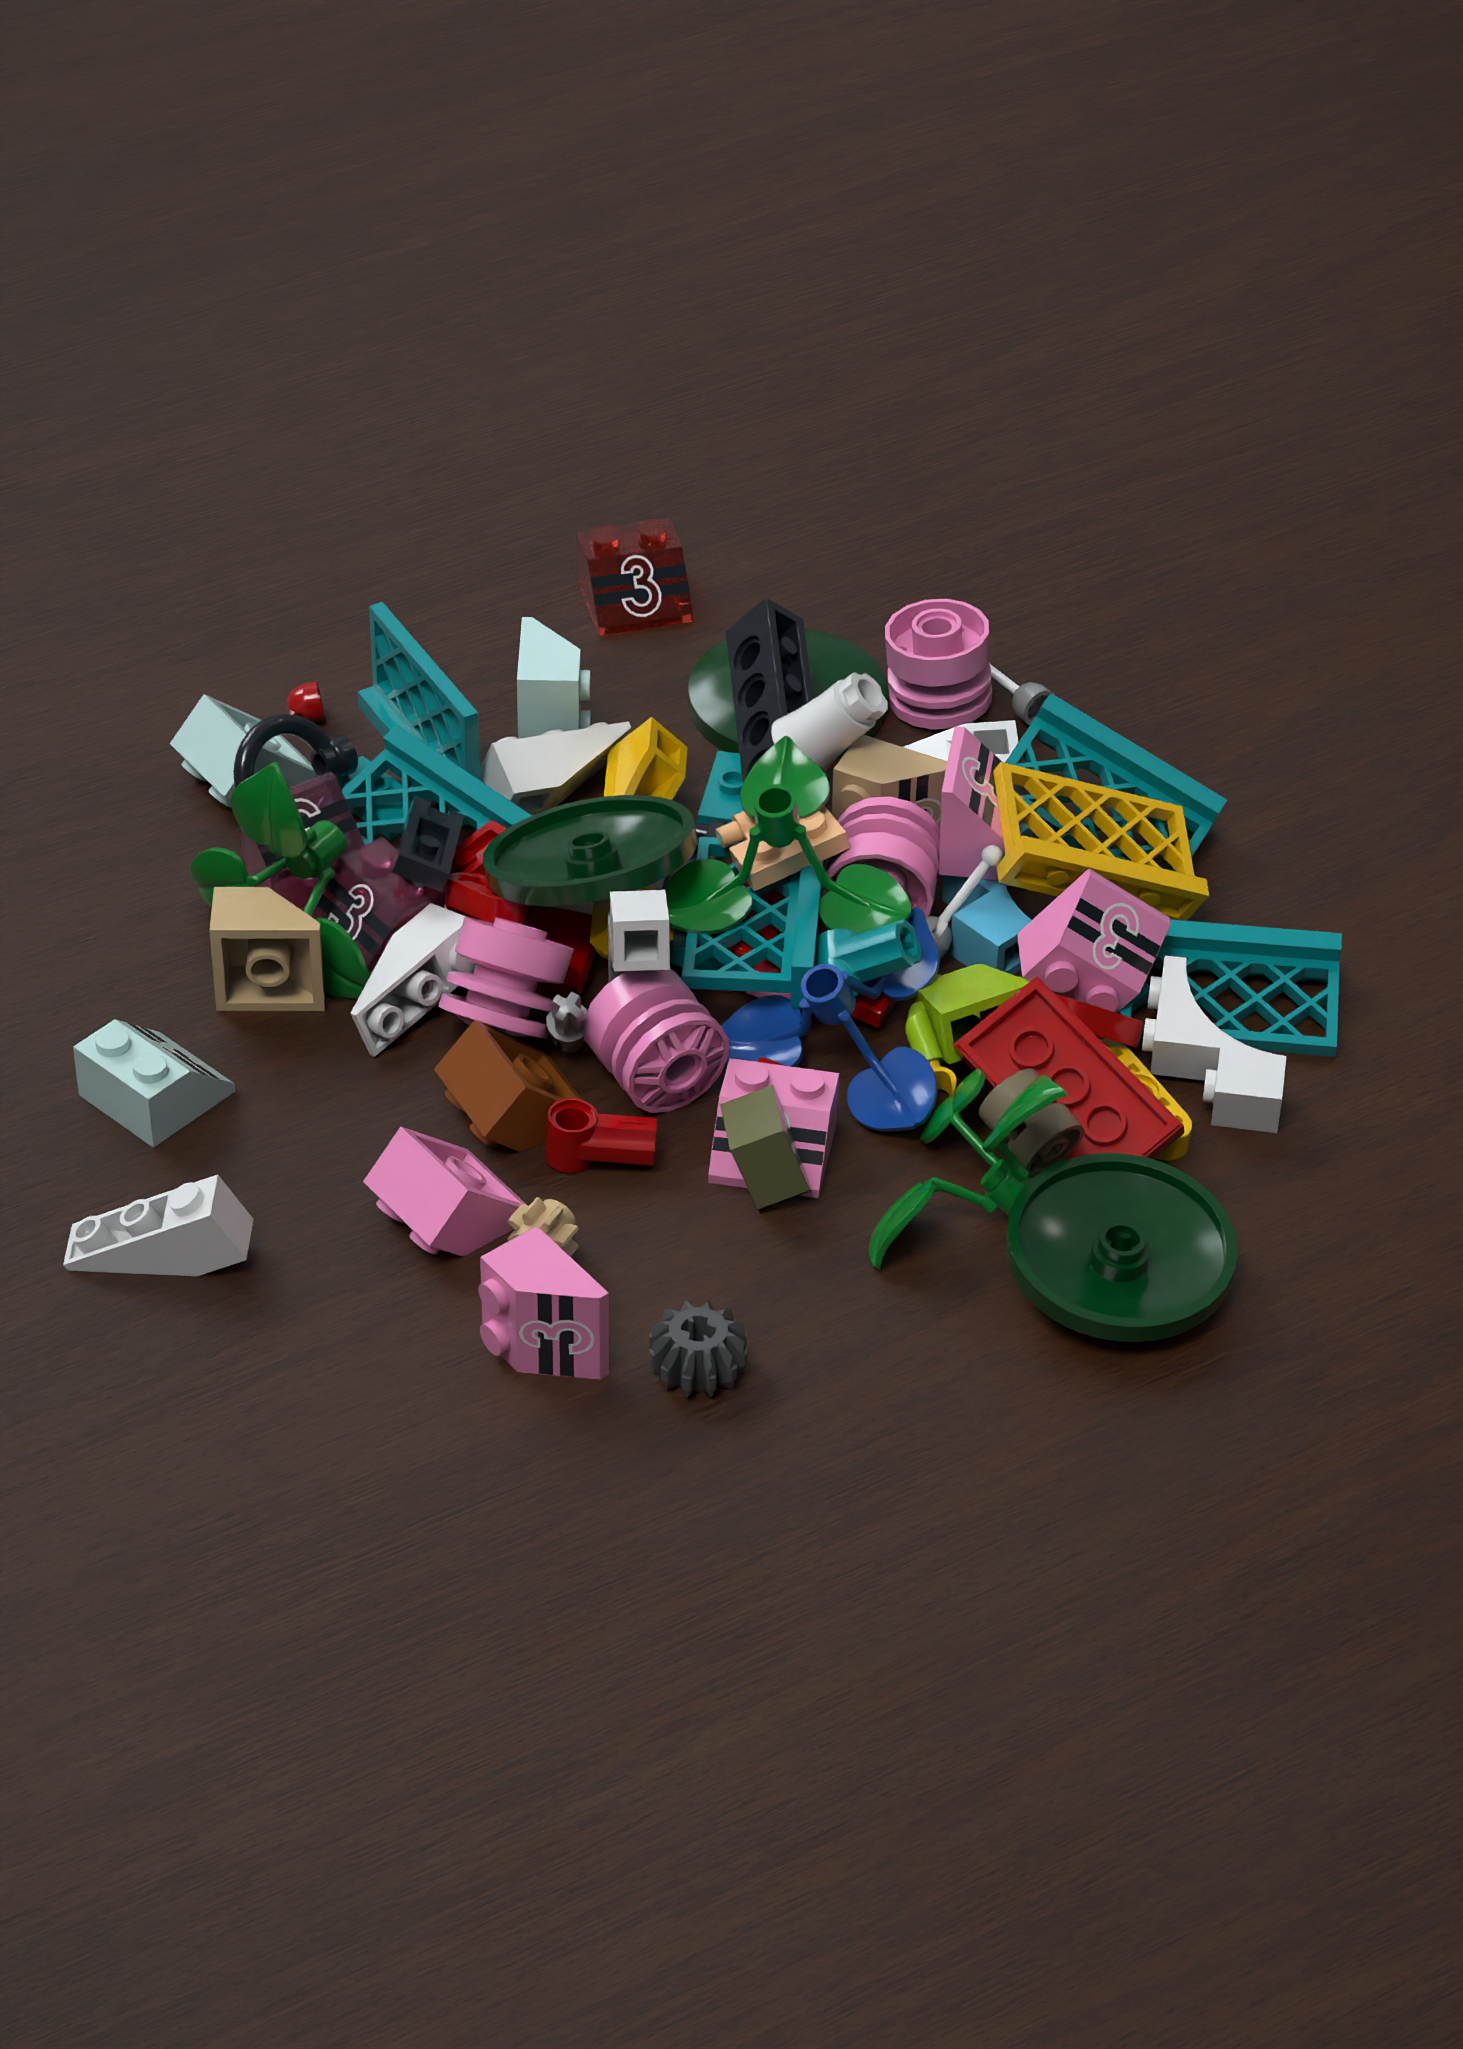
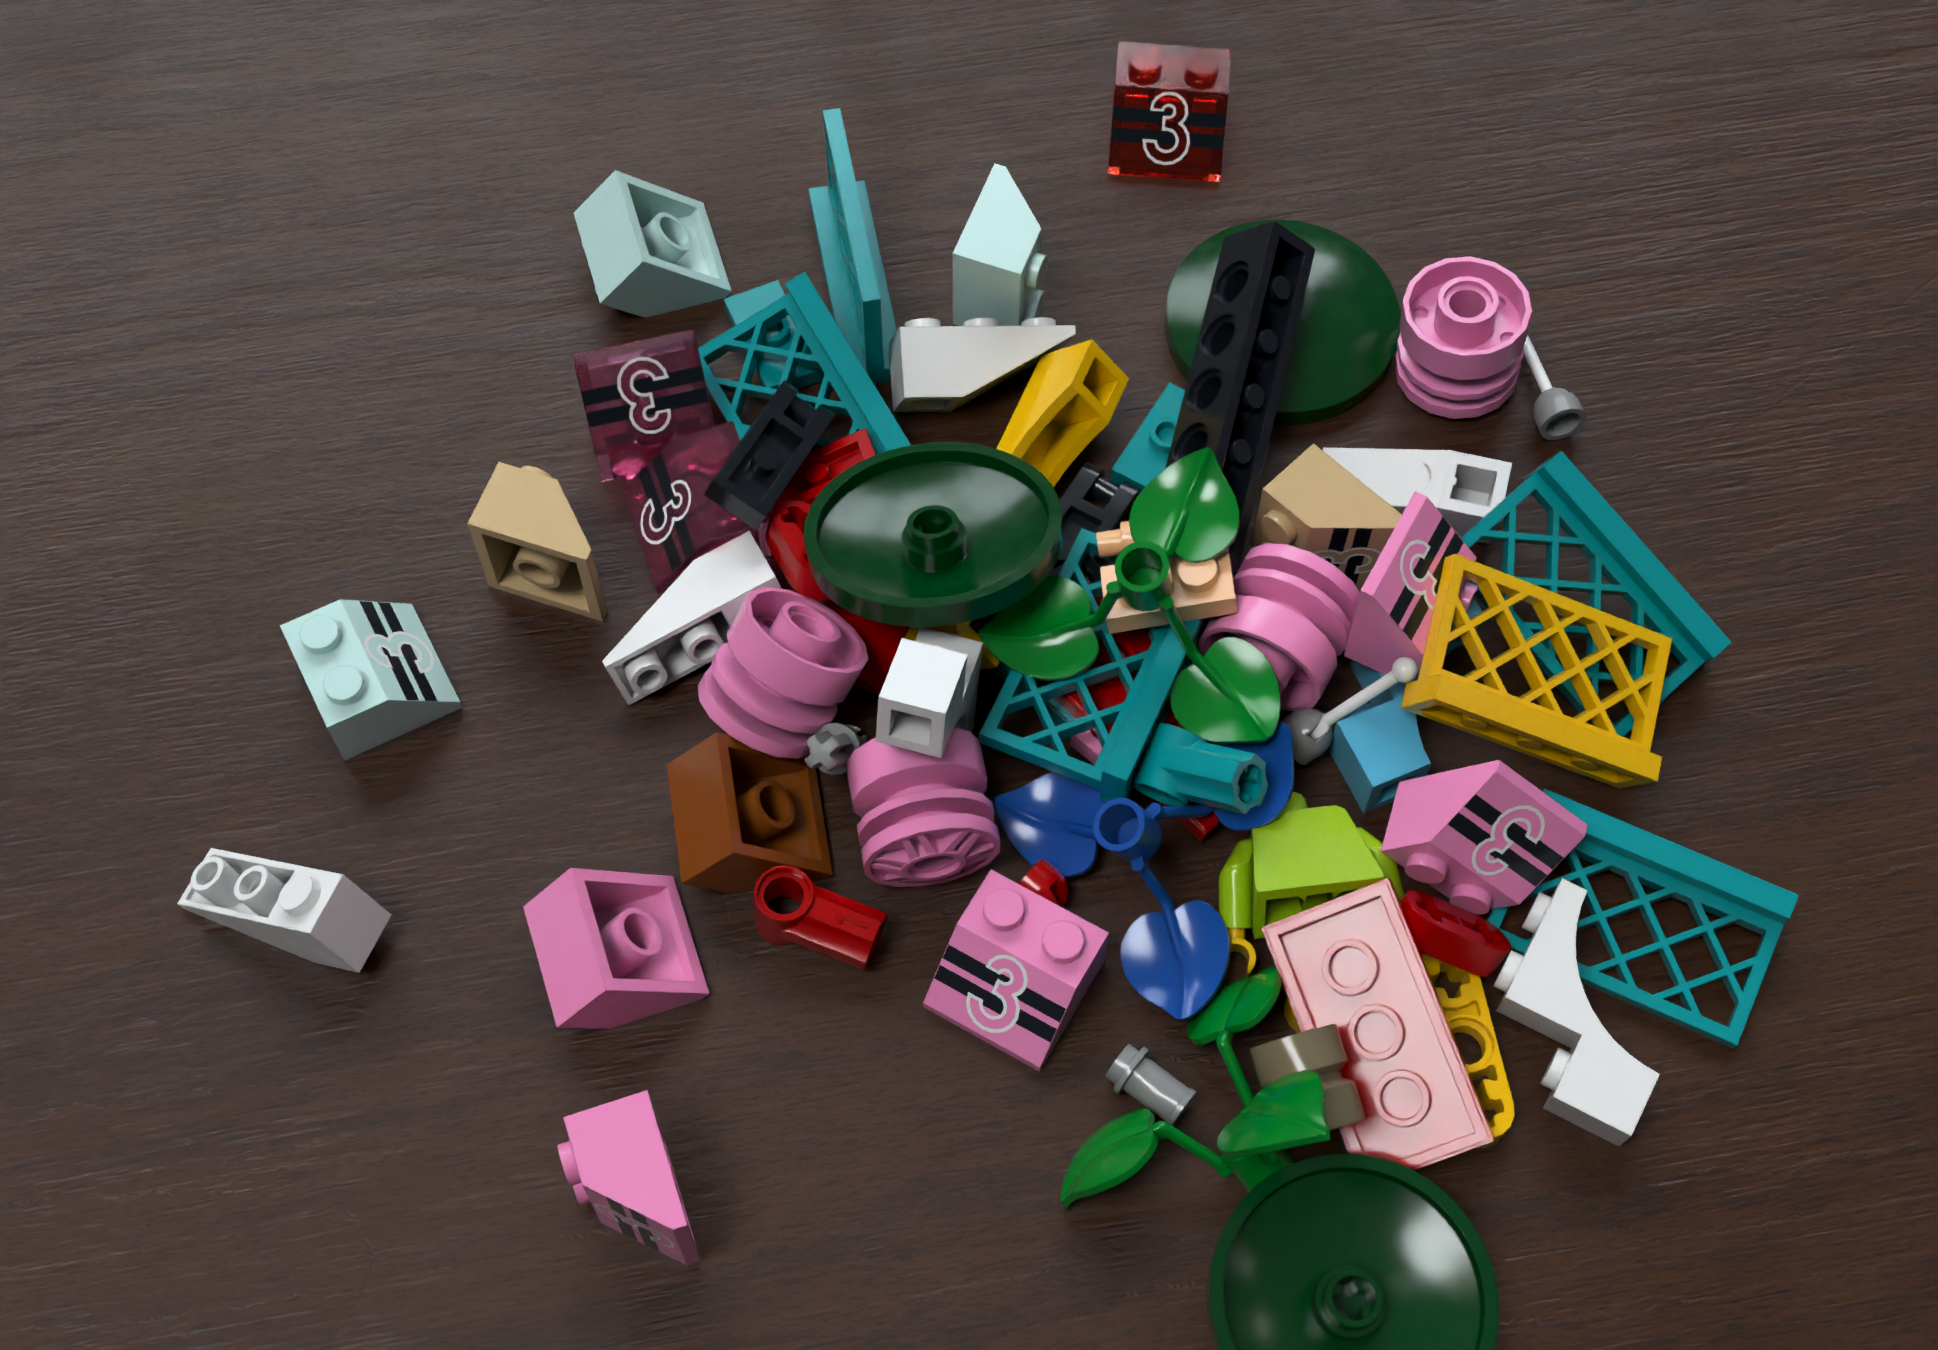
camera: 20 degrees right, 20 degrees up
(271, 818) = (630, 435): green plant -> none
(307, 702) = (750, 190): red hinge -> none
(328, 754) = (731, 283): black piece -> none
(551, 1217) = (693, 1046): tan gear -> none
(698, 1348) = (795, 1251): dark grey gear -> none
(764, 1148) = (982, 1005): olive slope -> none
(833, 719) = (1275, 428): white plant -> none
(904, 1172) = (1150, 1084): none -> light grey pin

